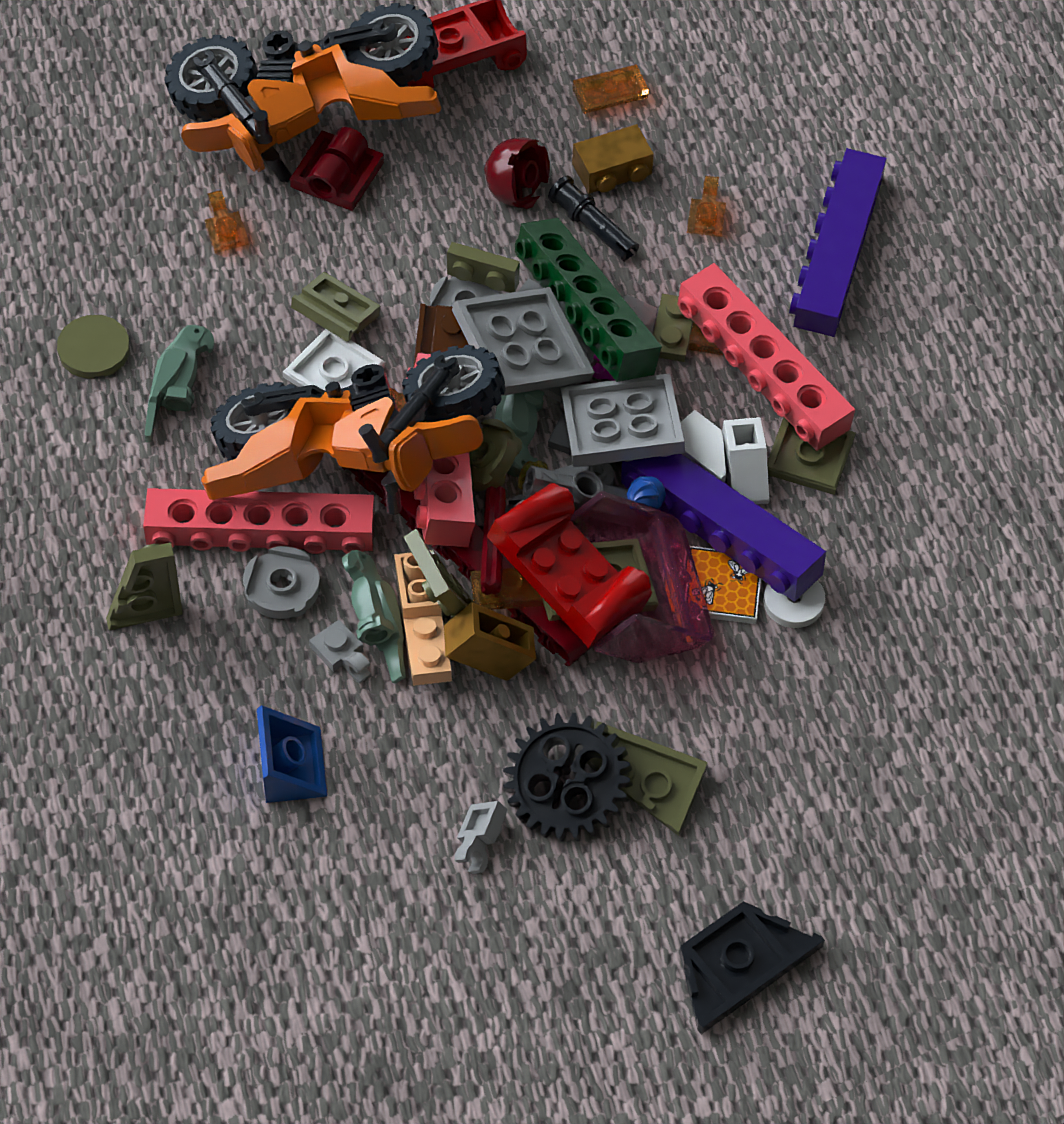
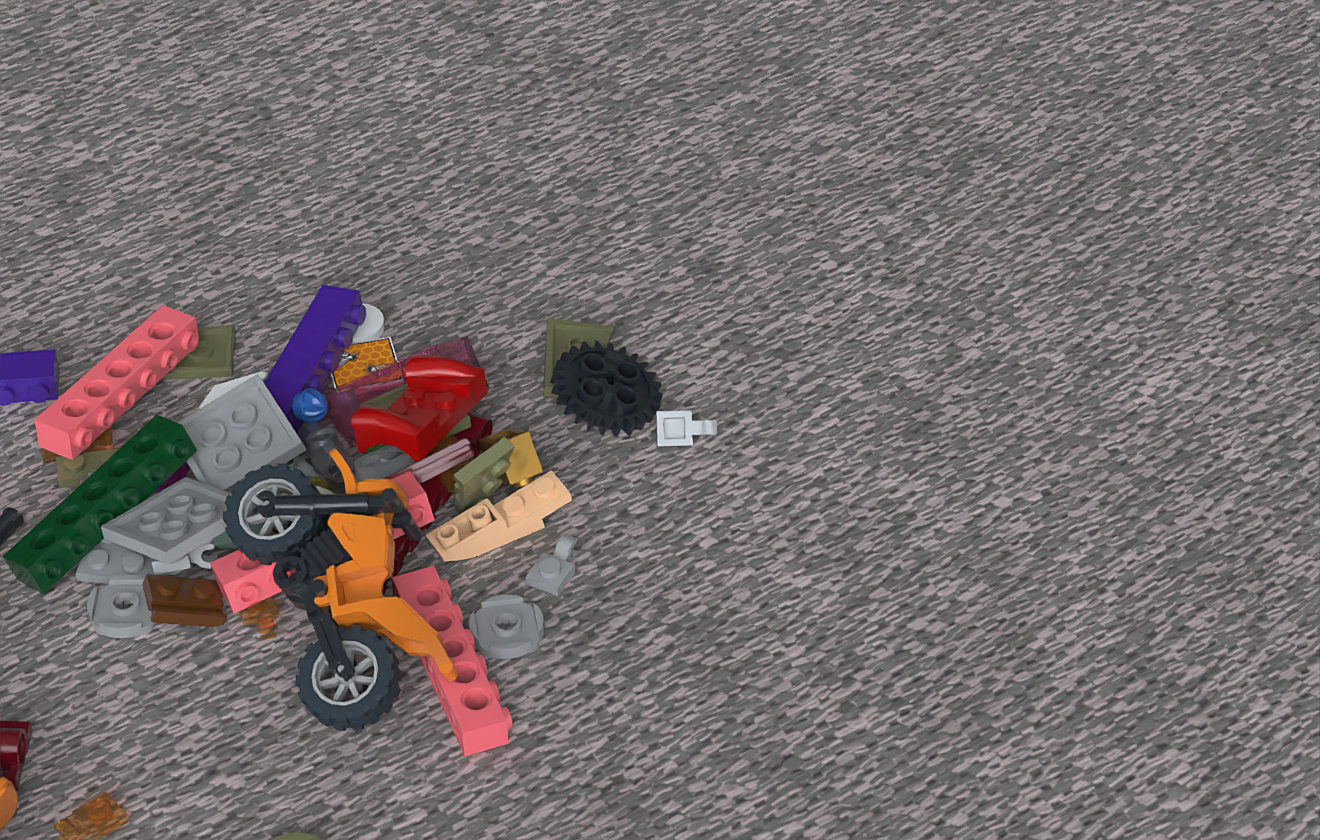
camera: 110 degrees left, 15 degrees down
(147, 588) = (576, 677): olive wing -> none
(177, 374) = (310, 781): sand green animal -> none
(290, 757) = (686, 563): blue slope -> none
(329, 361) = (242, 678): white tile -> none
(335, 306) = (169, 693): olive plate -> none
(377, 611) = (507, 551): sand green animal -> none
(483, 267) = (91, 591): olive plate -> none
(740, 959) = (706, 270): black wing -> none
(746, 458) = (228, 364): white slope -> none

